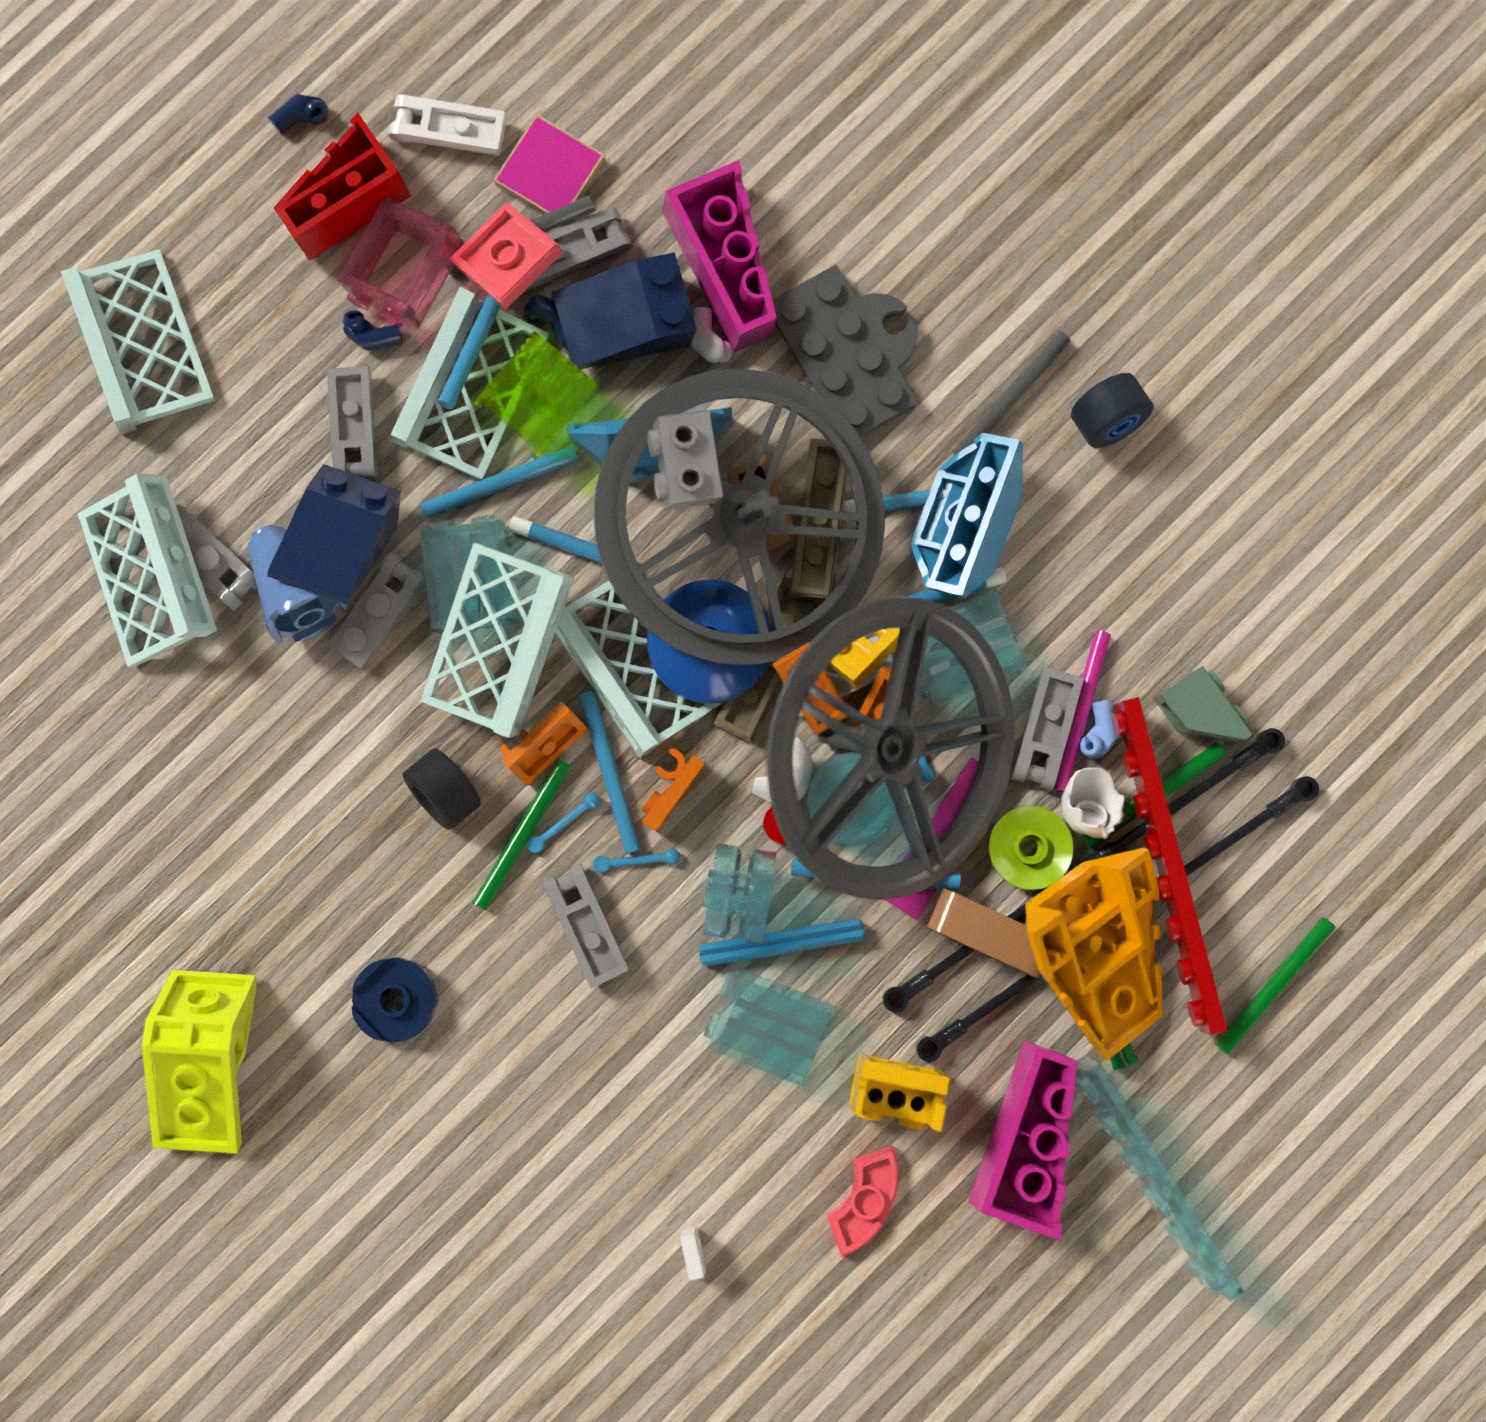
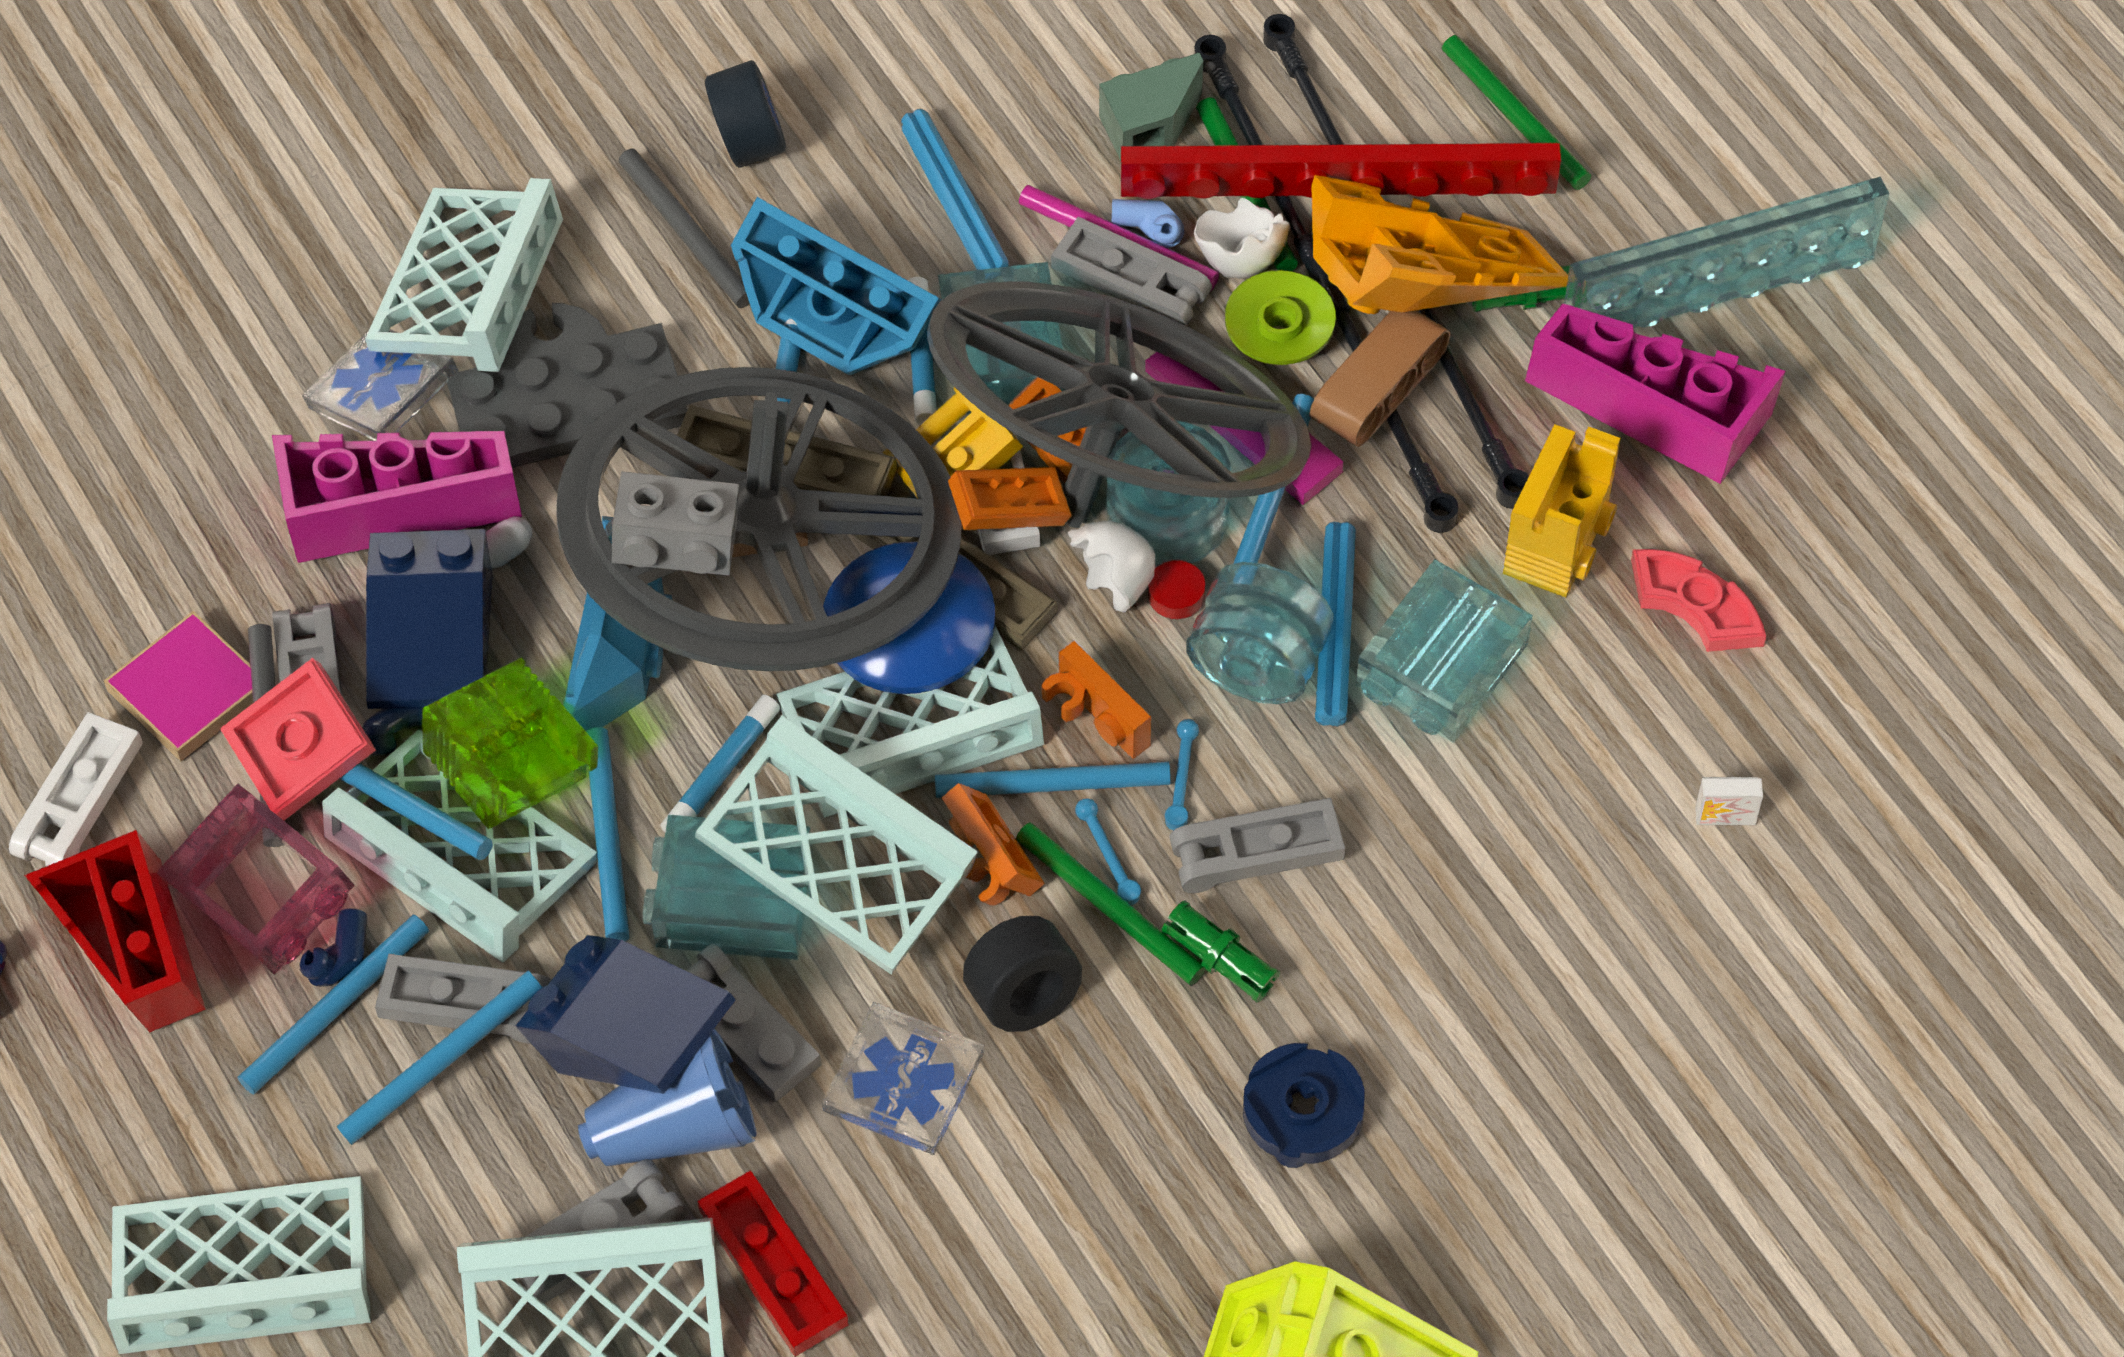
camera: 75 degrees left, 25 degrees down
(204, 677) = (773, 1263): none -> red plate
(300, 422) = (439, 1058): none -> dark azure bar
(334, 341) = (331, 1005): none -> dark azure bar
(361, 727) = (903, 1078): none -> clear tile
(496, 918) = (1220, 951): none -> green pin
(817, 221) = (378, 389): none -> clear tile
(929, 283) = (505, 276): none -> light aqua fence
(1088, 582) = (952, 191): none -> dark azure axle

